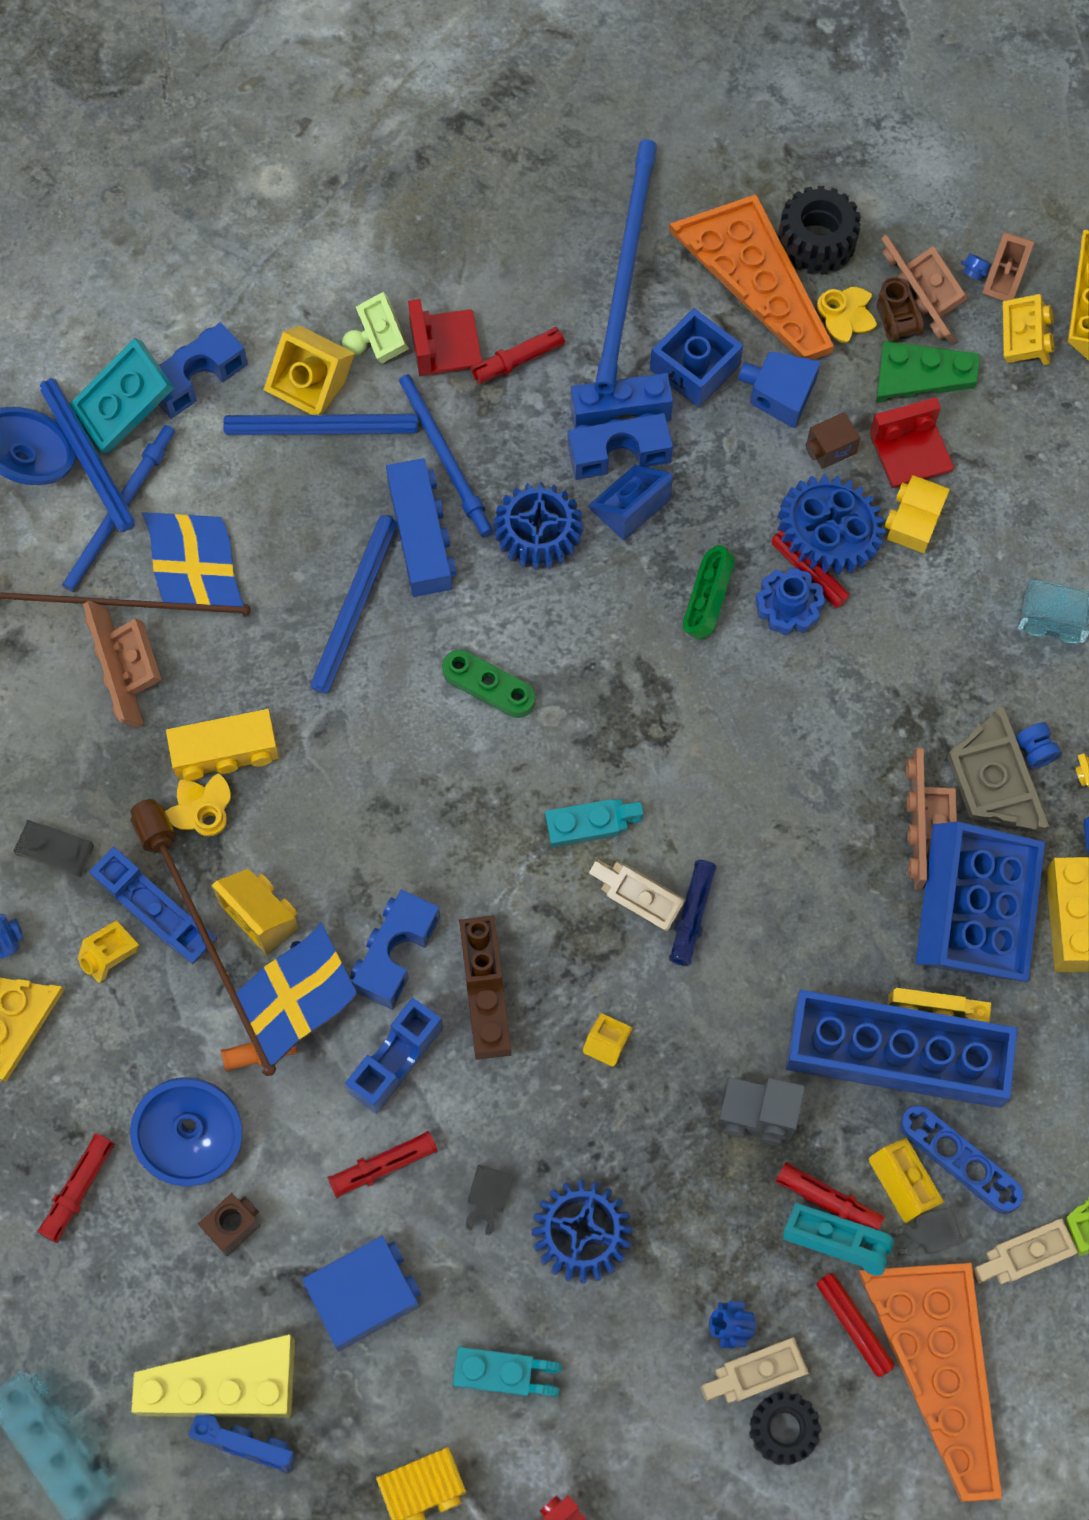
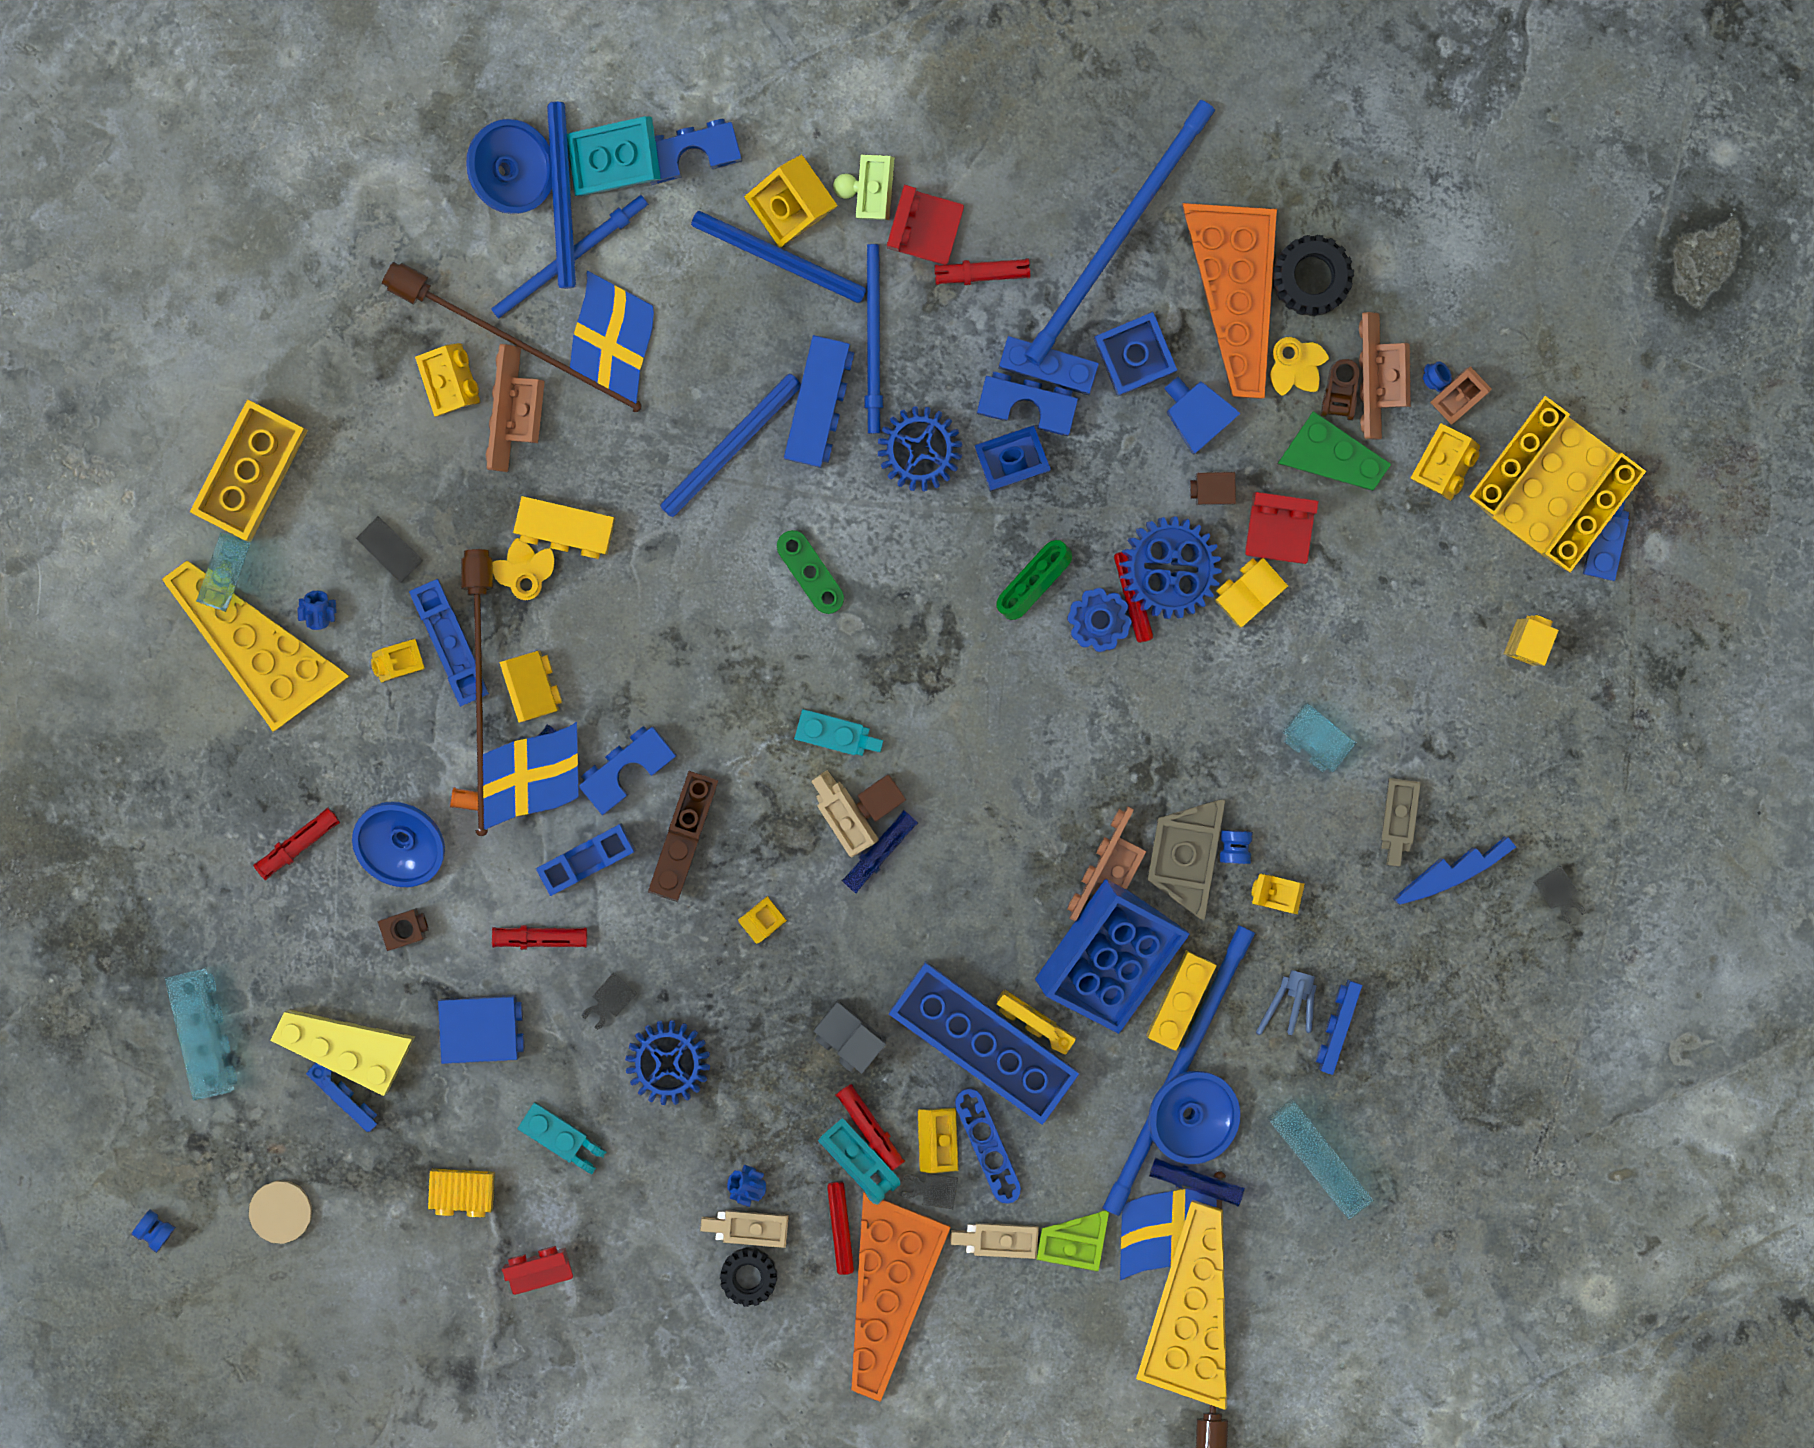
camera: 30 degrees right, 20 degrees up
(44, 662) = (448, 379): none -> yellow bracket
(667, 857) = (880, 798): none -> reddish brown brick

